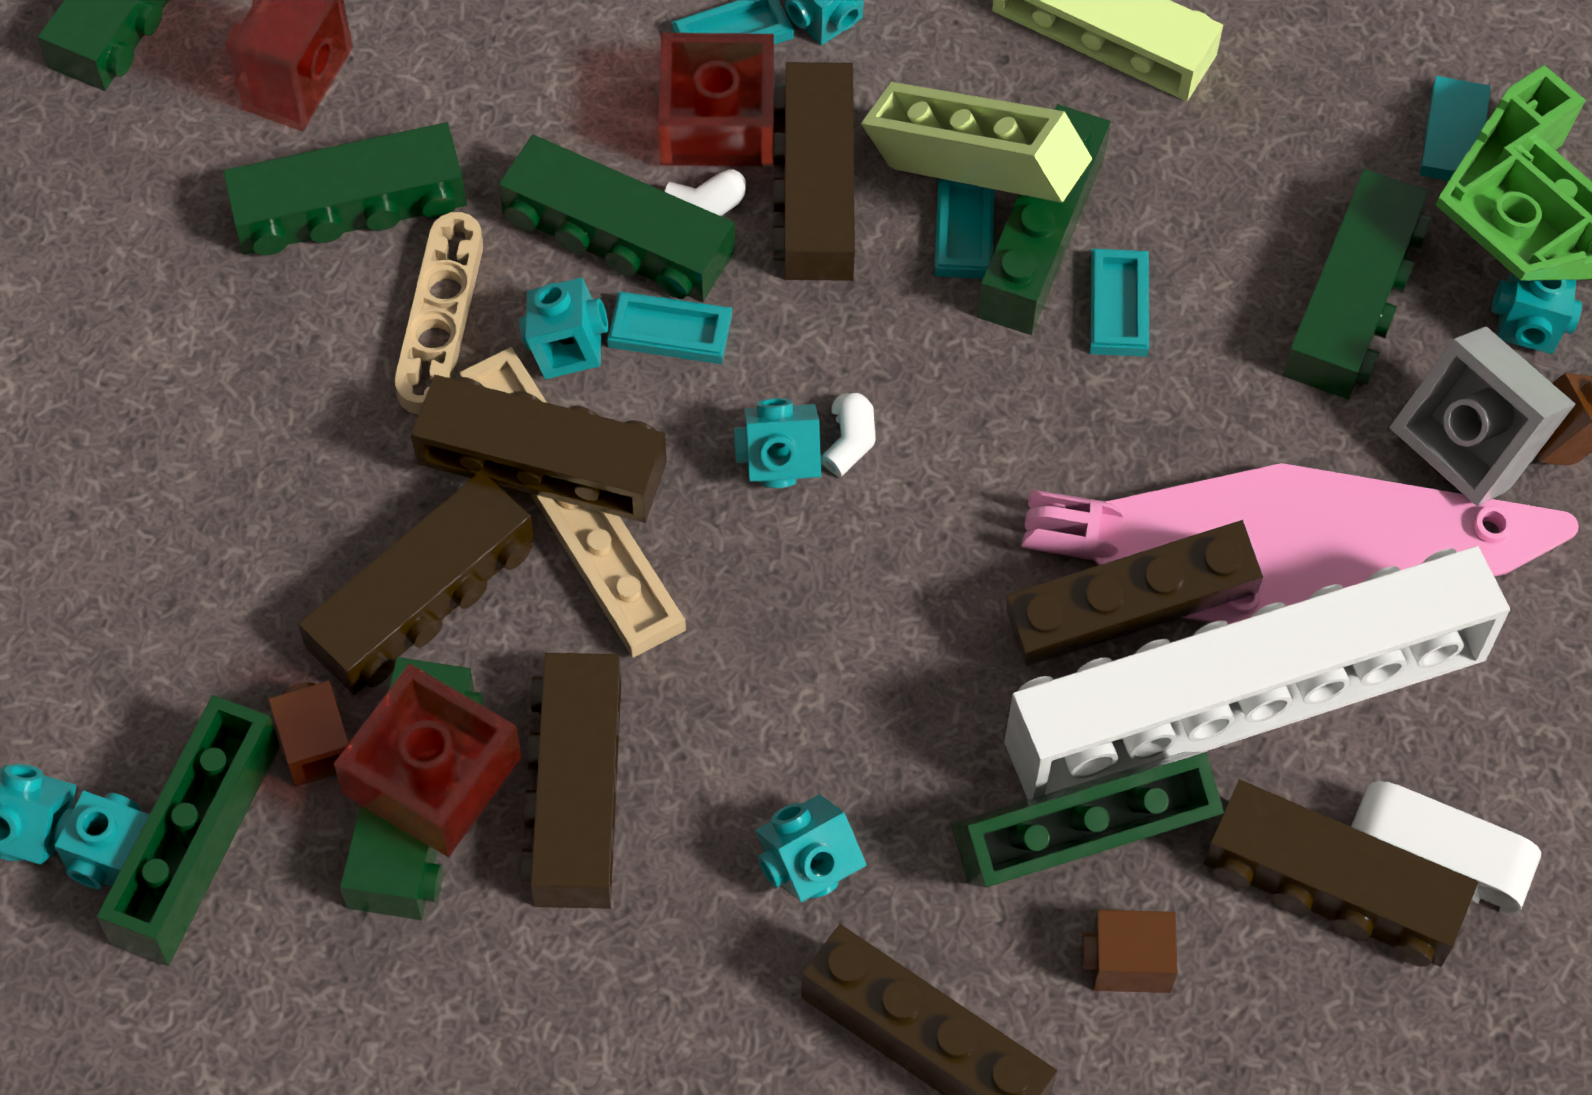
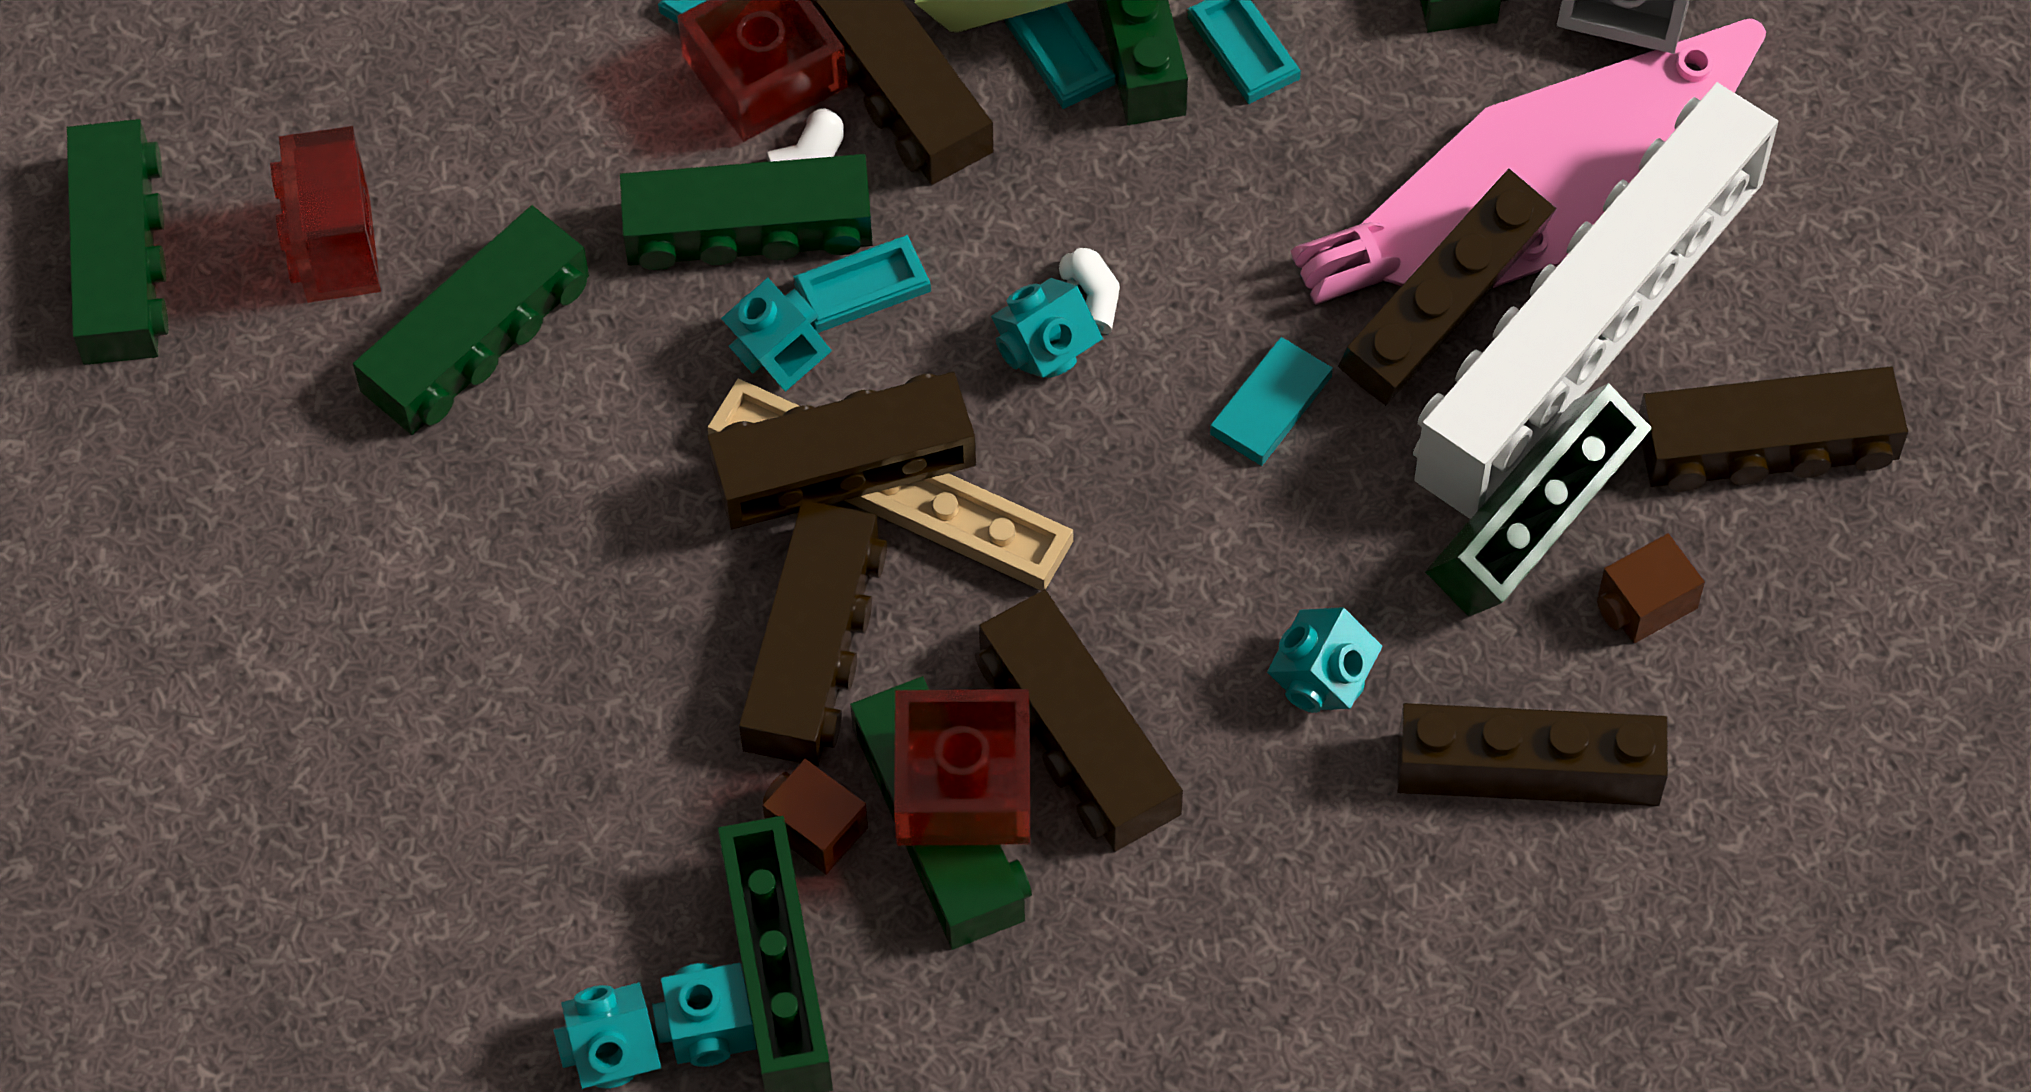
camera: 30 degrees left, 0 degrees up
(433, 312) = (647, 384): tan beam -> none
(930, 607) = (1271, 401): none -> teal tile
(1454, 839) = (1843, 345): white beam -> none

